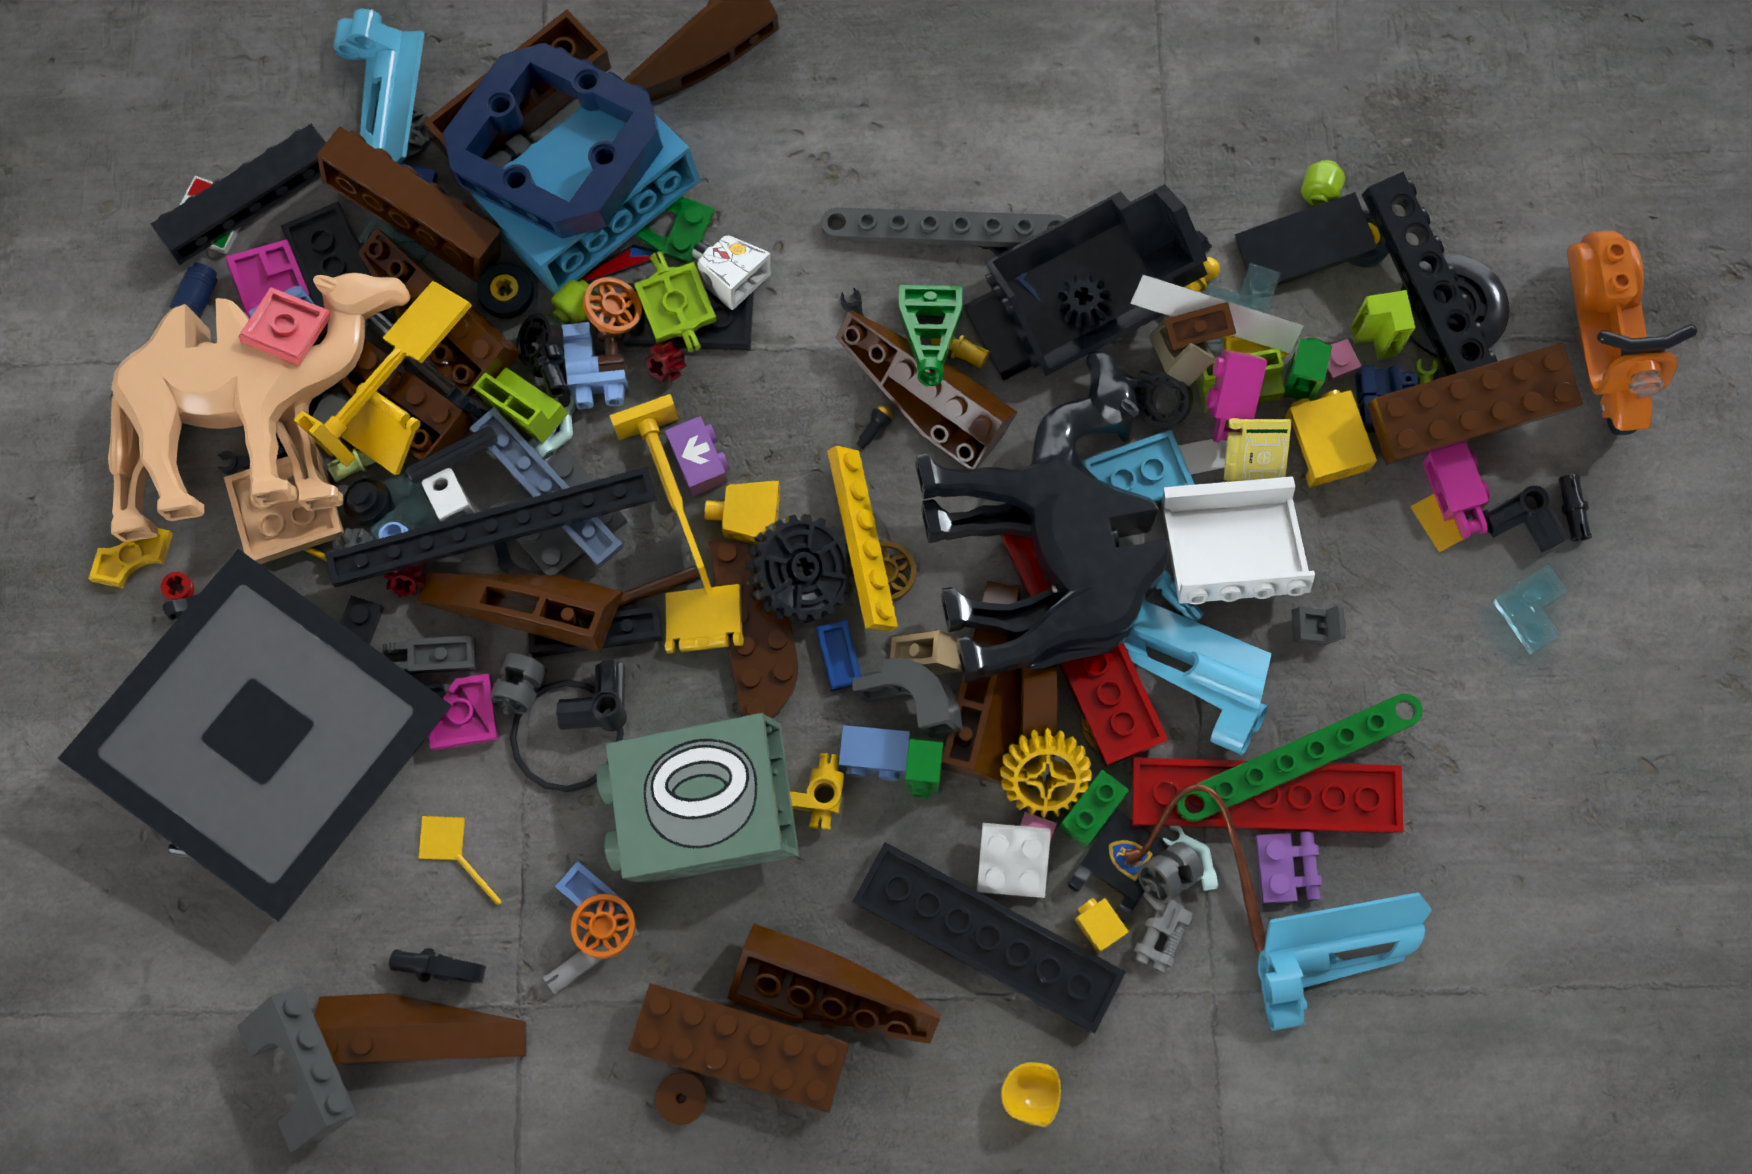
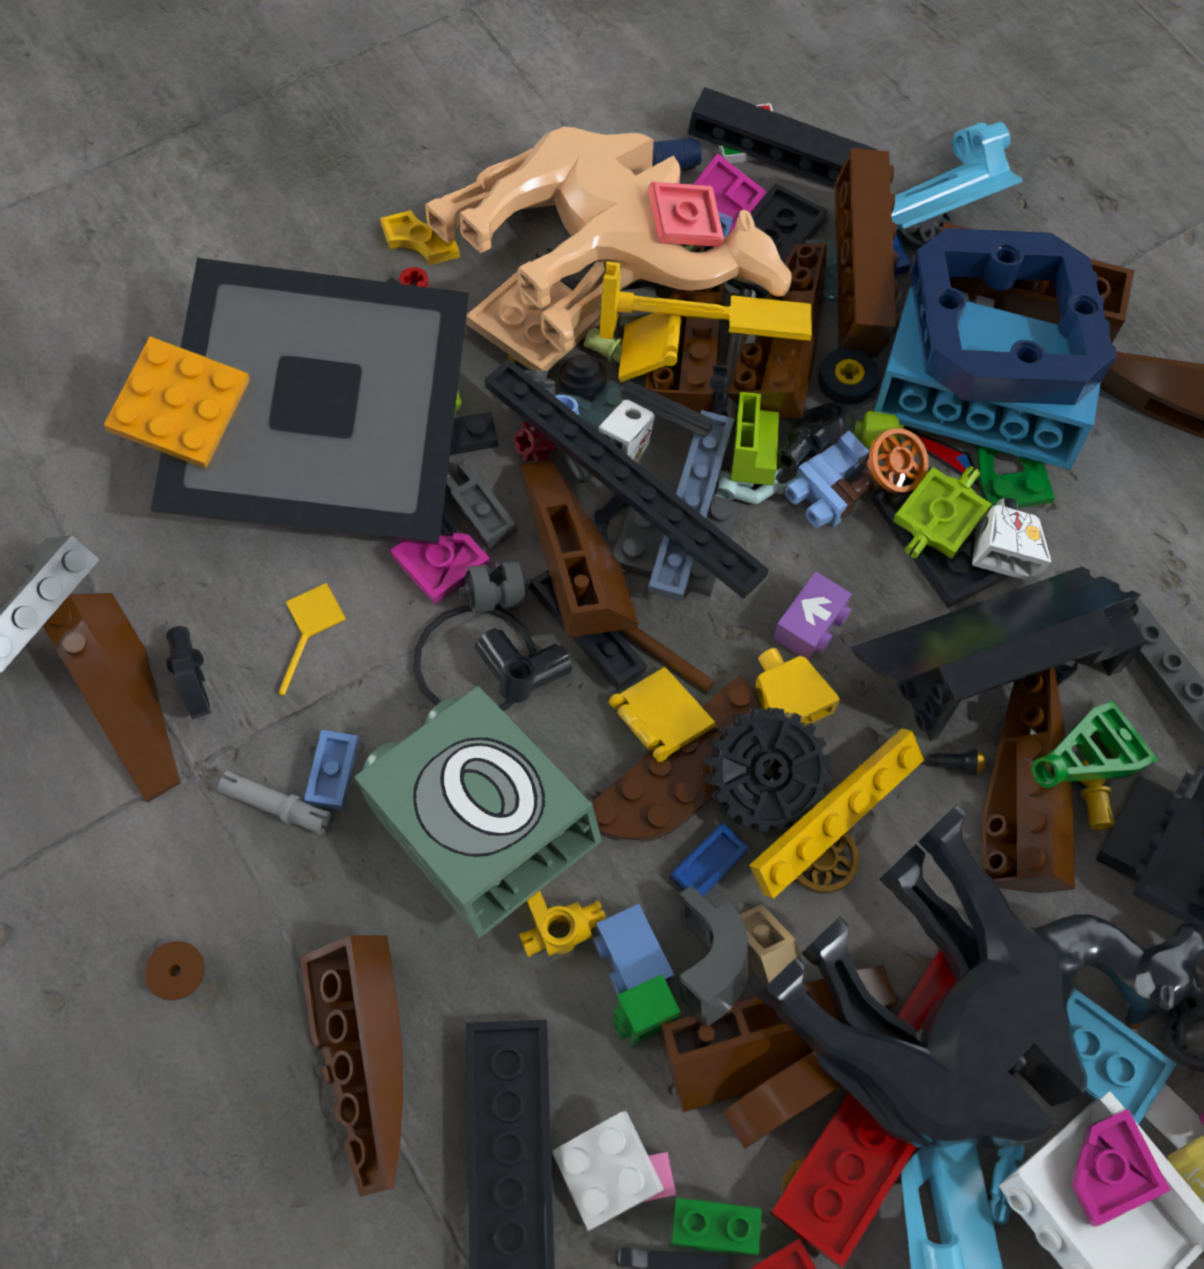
camera: 55 degrees right, 10 degrees down
(192, 848) = (177, 402): none -> light orange plate
(603, 926) = (304, 793): orange wheel -> none
(646, 420) = (811, 553): yellow piece -> none
(665, 362) = (881, 538): dark red gear -> none
(739, 1047) = (252, 1001): reddish brown brick -> none
(812, 334) = (1005, 642): none -> black panel
(1071, 777) = (698, 1121): yellow gear -> none
(1213, 520) = (1115, 1169): none -> dark pink plate

